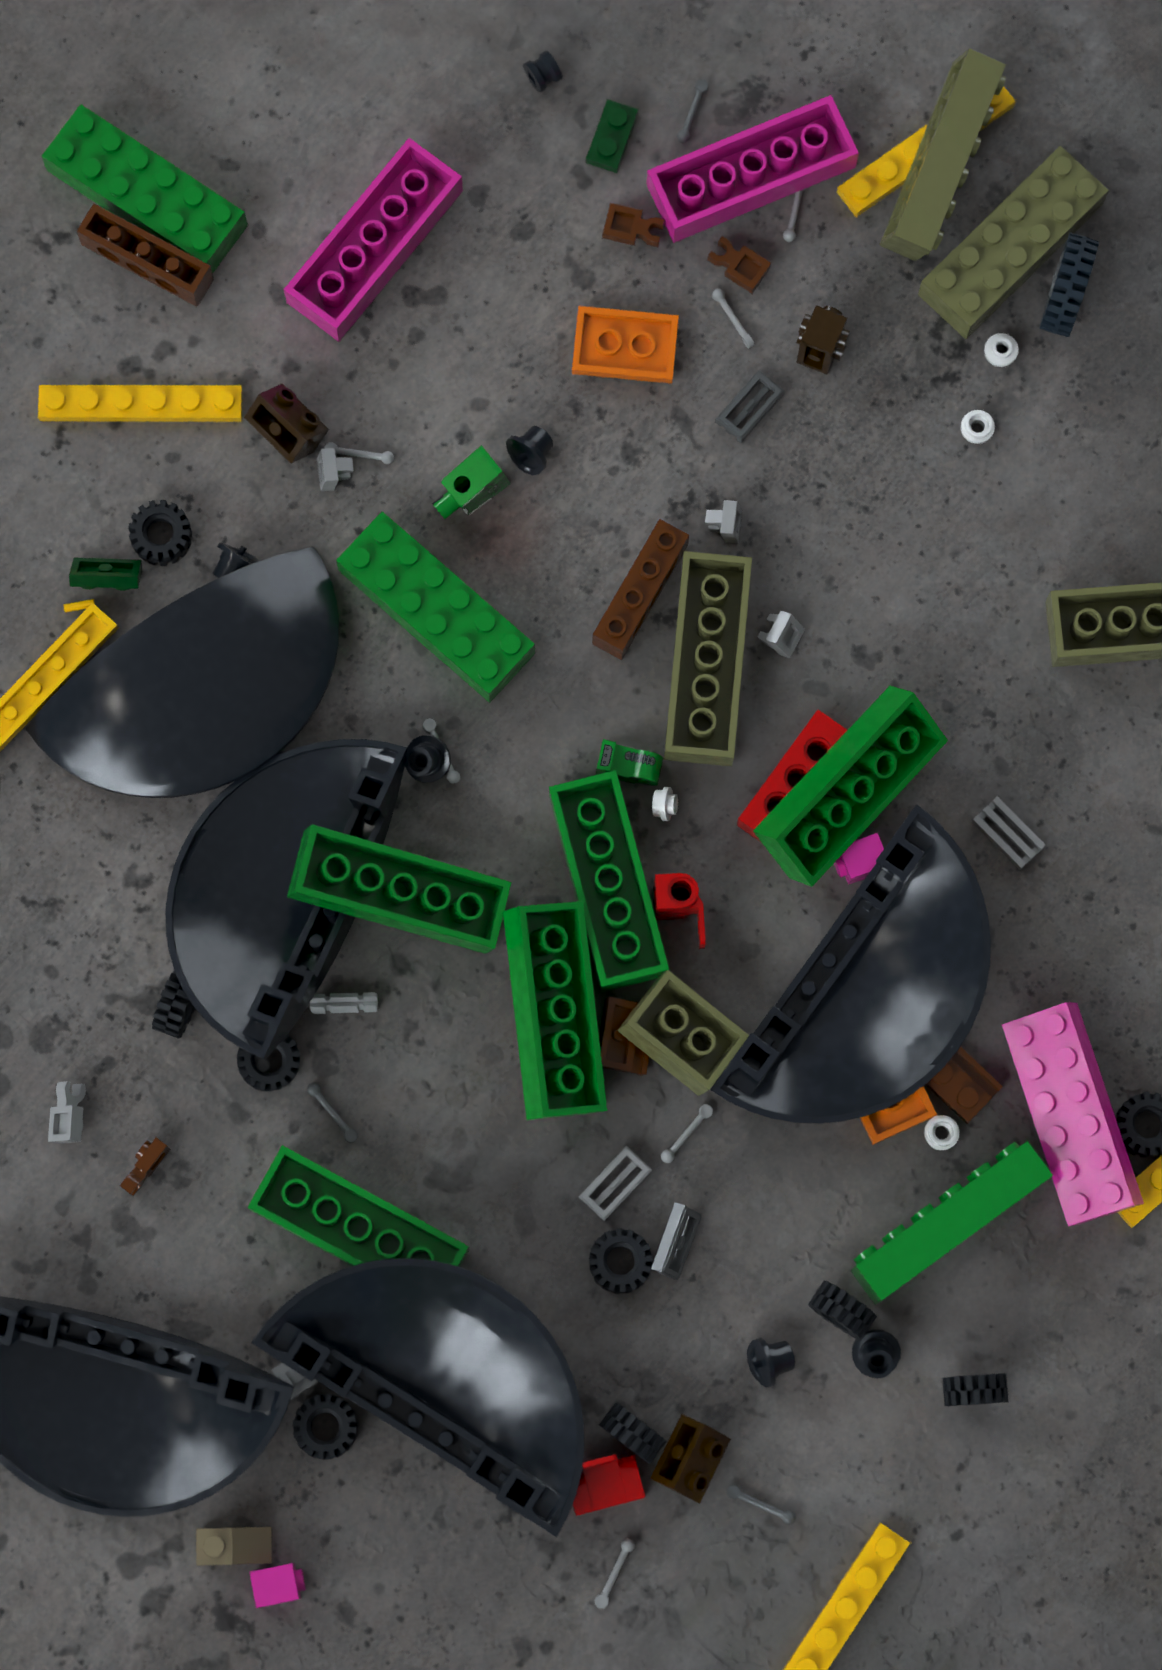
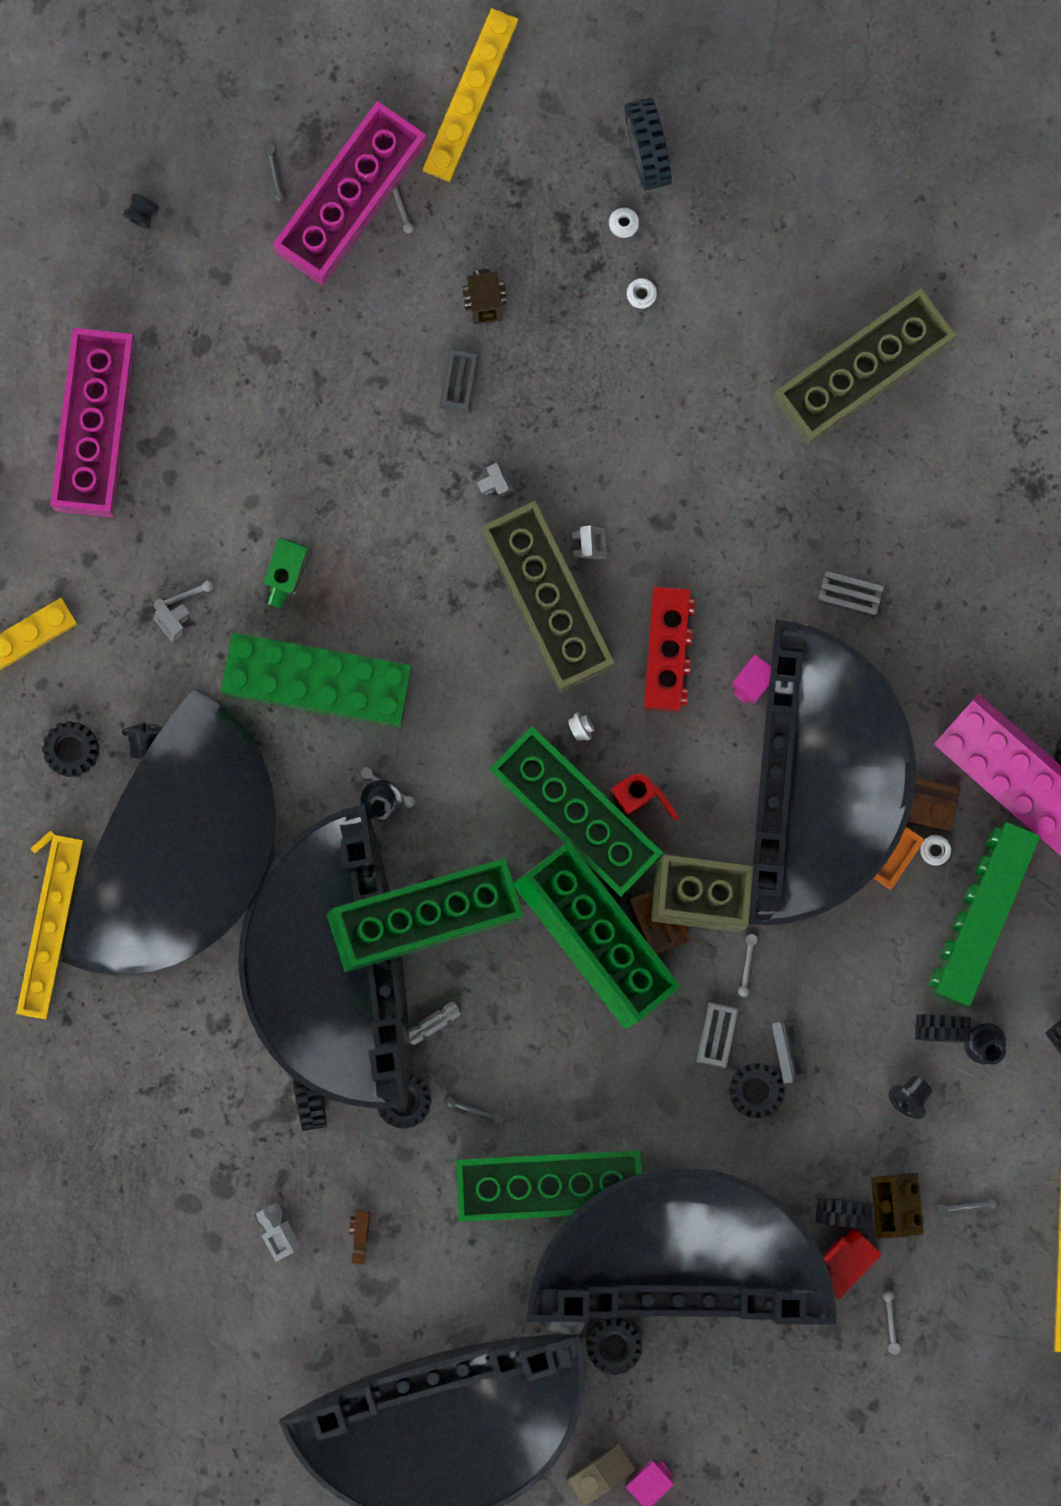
camera: 30 degrees left, 5 degrees up
(105, 573) = (48, 805): dark green plate -> none
(286, 423) = (115, 607): dark brown brick -> none
(530, 450) = (314, 515): black piece -> none
(612, 136) = (224, 230): dark green plate -> none
(625, 344) = (335, 389): orange plate -> none
(626, 225) = (279, 295): reddish brown plate -> none
(630, 764) = (535, 712): green leg -> none
(640, 589) = (463, 573): reddish brown brick -> none
(719, 296) = (383, 307): light grey hinge -> none
(743, 267) = (390, 274): reddish brown plate -> none
(850, 785) = (714, 631): green brick -> none
(943, 155) = (492, 98): olive brick -> none
(1012, 242) = (583, 133): olive brick -> none

